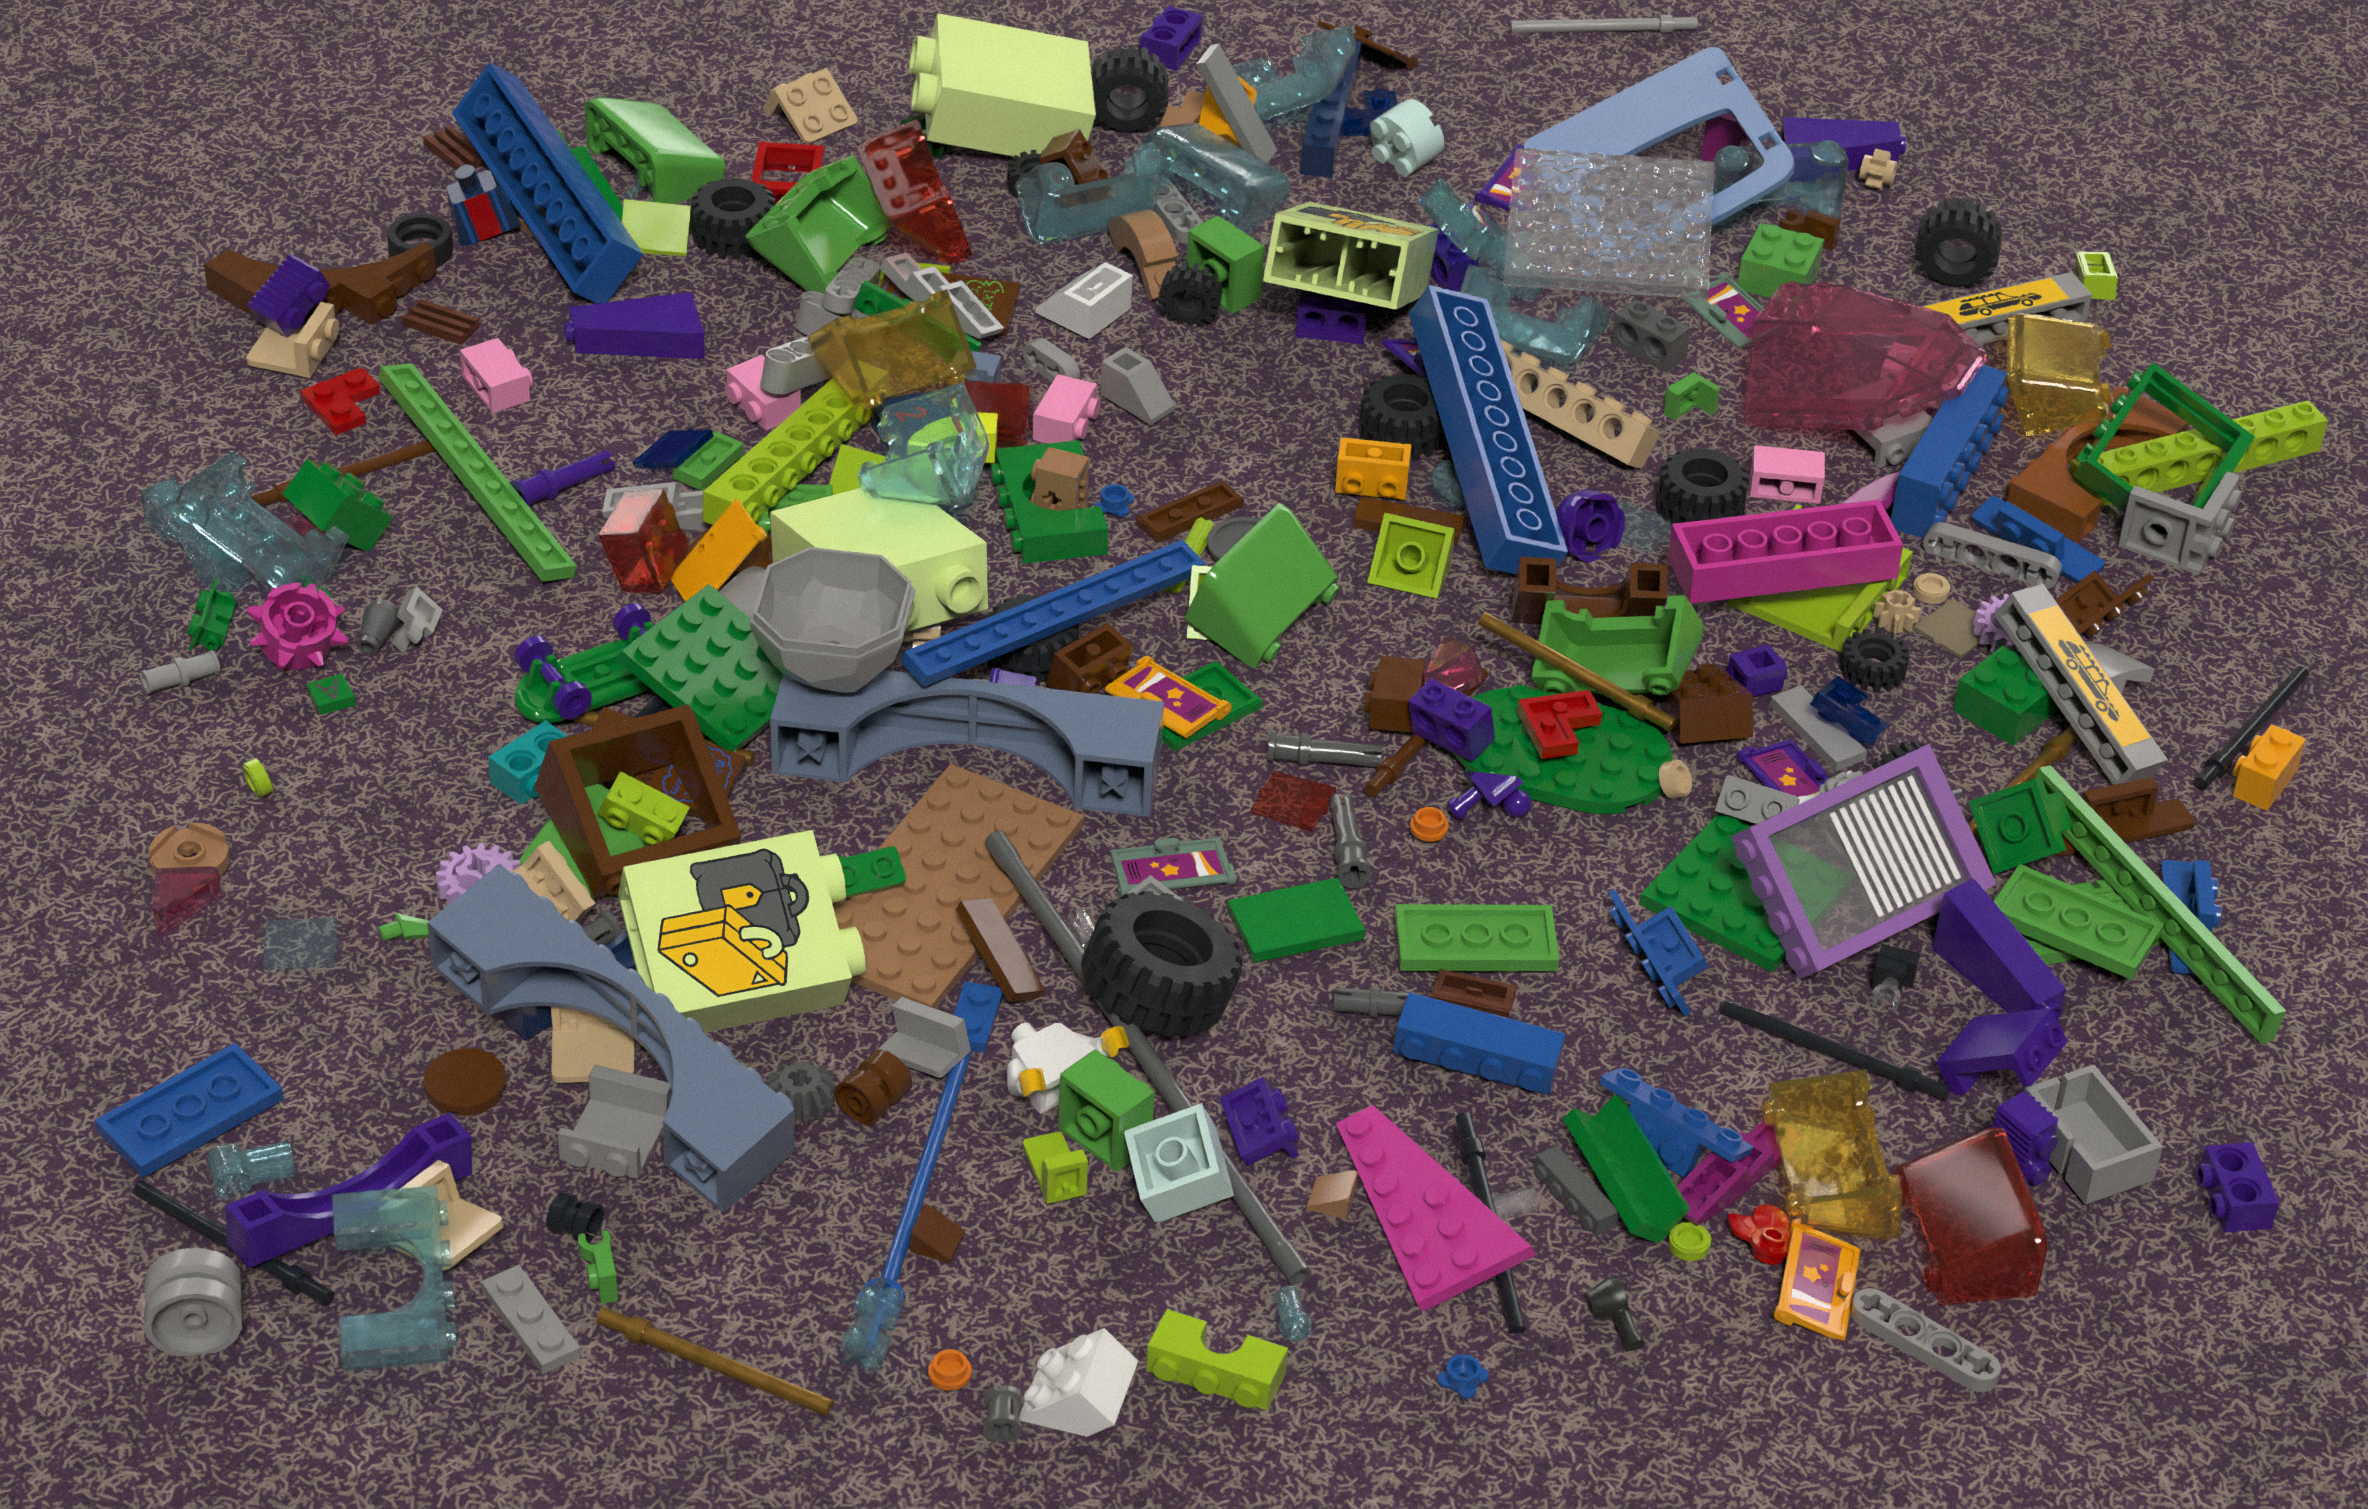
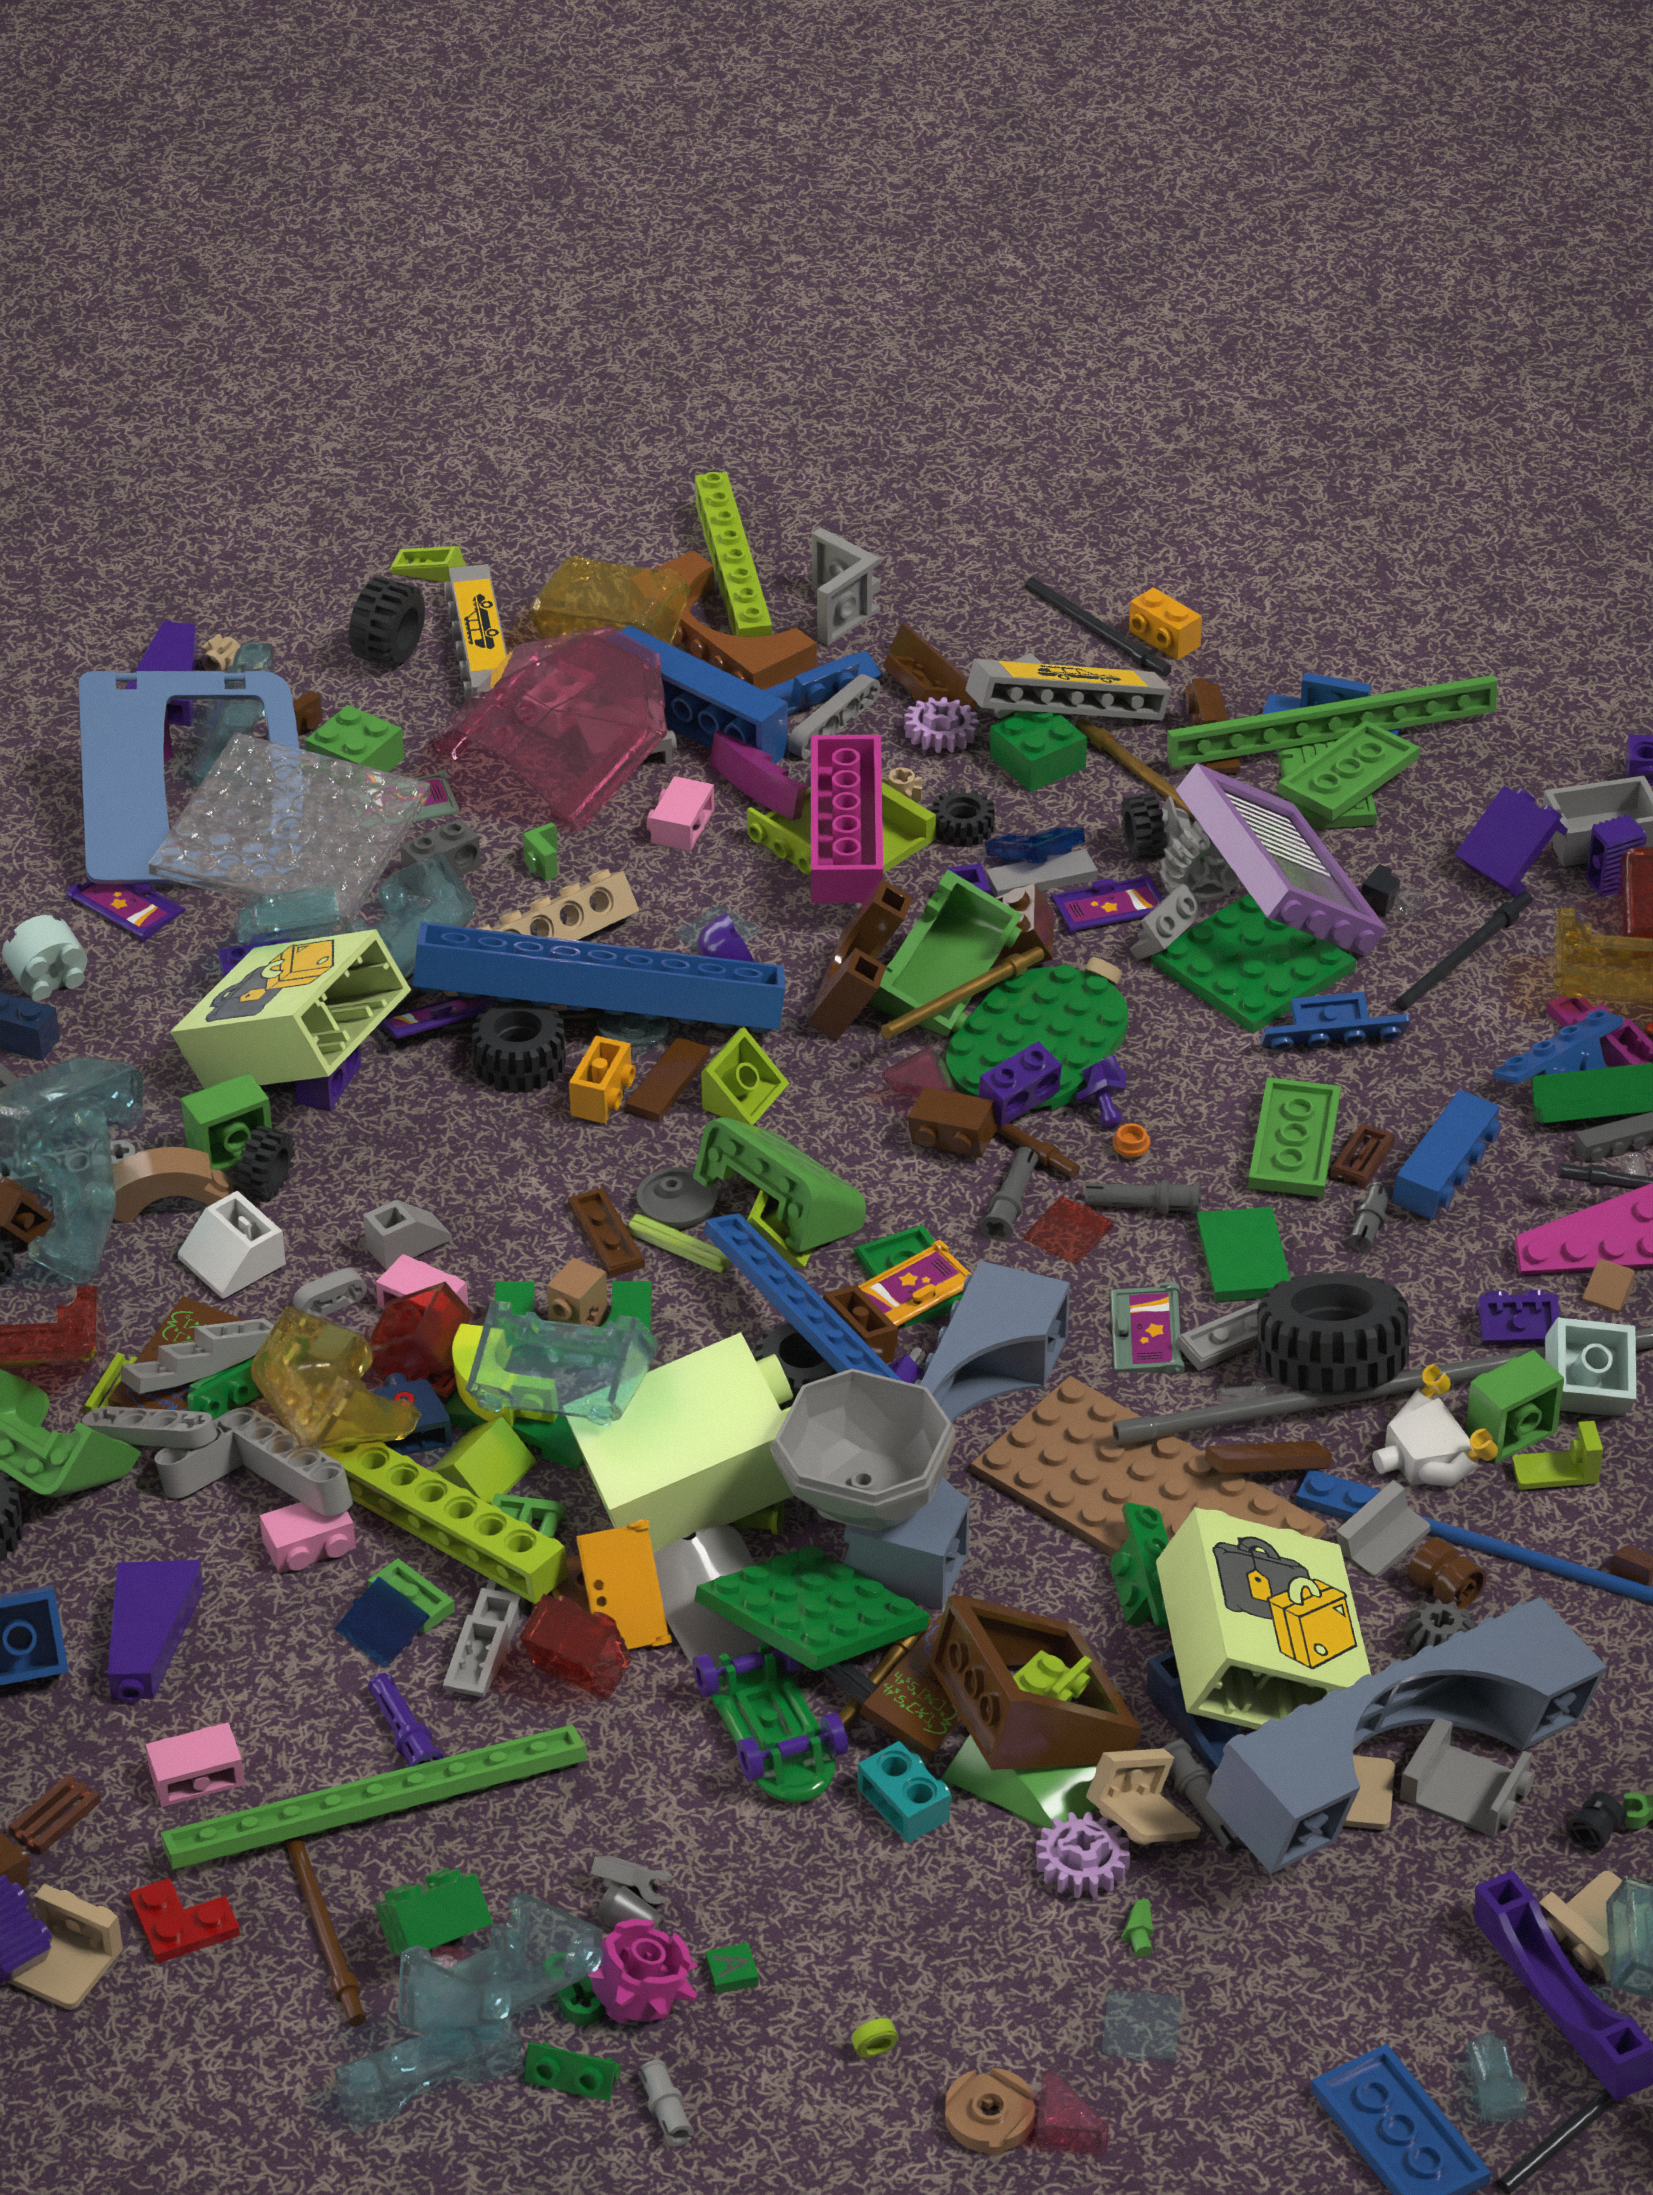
camera: 75 degrees left, 0 degrees up
(465, 1081) = (1380, 1899): reddish brown tile -> none
(1554, 716) = (1023, 1025): red plate -> none
(1701, 486) = (698, 869): black tyre -> none
(1950, 628) = (924, 763): dark tan piece -> none
(1993, 954) = (1383, 825): dark purple slope -> none
(2020, 824) = (1236, 755): green panel -> none
(2187, 406) = (709, 545): green window -> none

